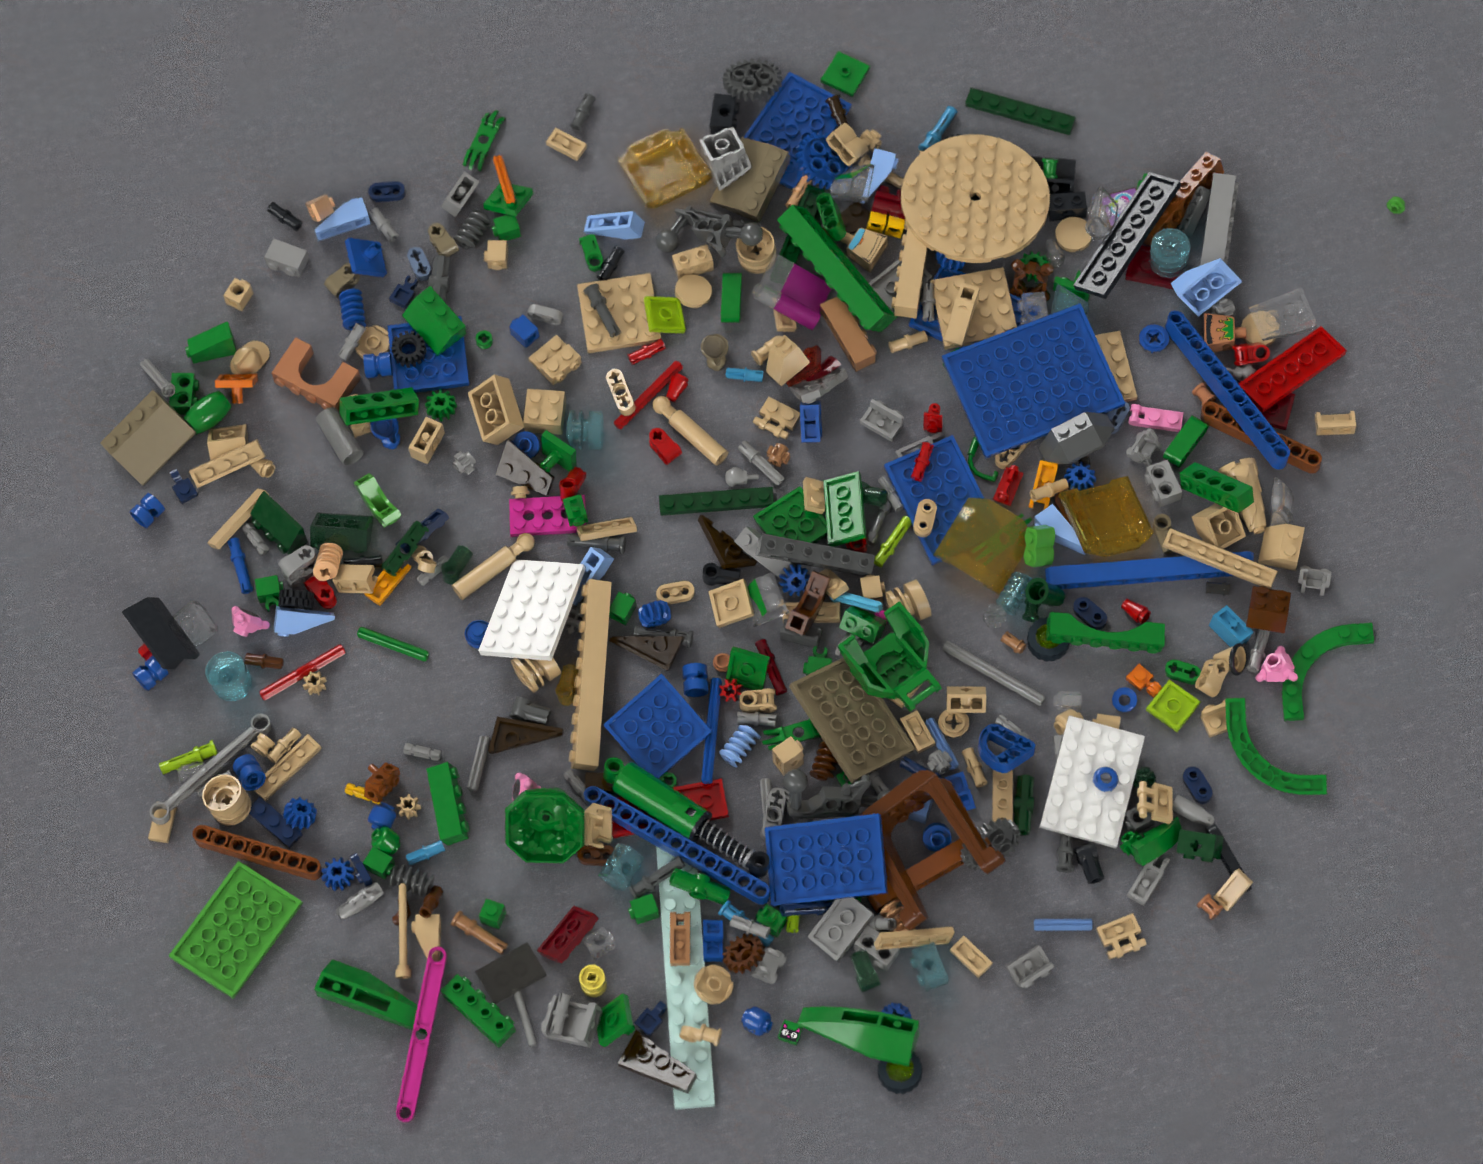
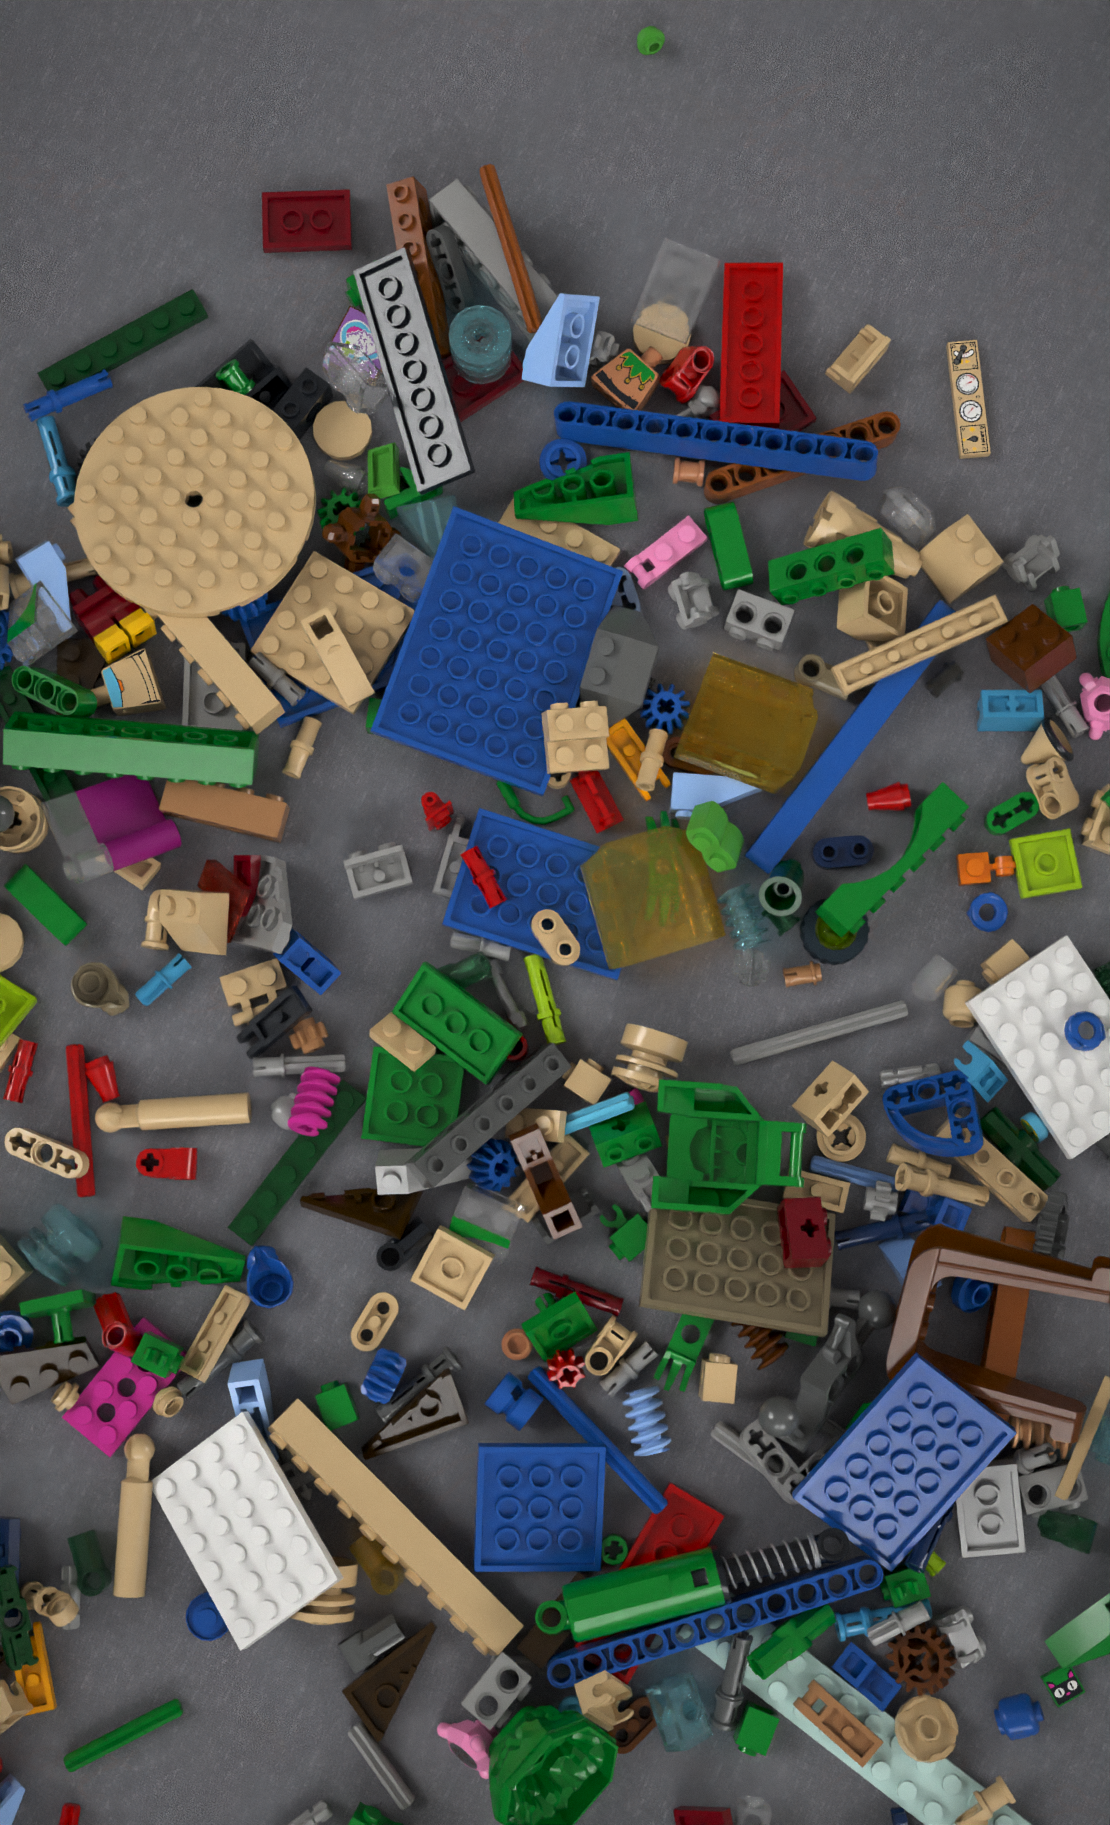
camera: 55 degrees left, 15 degrees up
(557, 540) = (168, 1402): none -> tan plate
(559, 771) = (490, 1685): none -> light grey brick
(619, 477) = (161, 1254): none -> green wedge
(652, 529) = (267, 1278): none -> blue hair
(750, 479) = (312, 1100): none -> dark pink piece
(770, 433) = (275, 1021): none -> black hinge
(890, 734) = (797, 1247): none -> dark red brick
(968, 774) = (929, 1183): none -> tan pin
(970, 107) = (68, 395): none -> blue pin
(1025, 446) = (575, 737): none -> tan plate
(1041, 752) = (981, 1072): none -> dark azure hinge
(1041, 803) = (1034, 1127): none -> medium azure tile
(1070, 265) = (384, 471): none -> bright green tile
(1150, 363) = (591, 495): none -> green wedge
(1156, 136) = (306, 221): none -> dark red plate
(1225, 223) = (511, 248): none -> dark orange axle
(1305, 613) = (1066, 608): none -> green brick
(1366, 487) = (968, 399): none -> tan tile

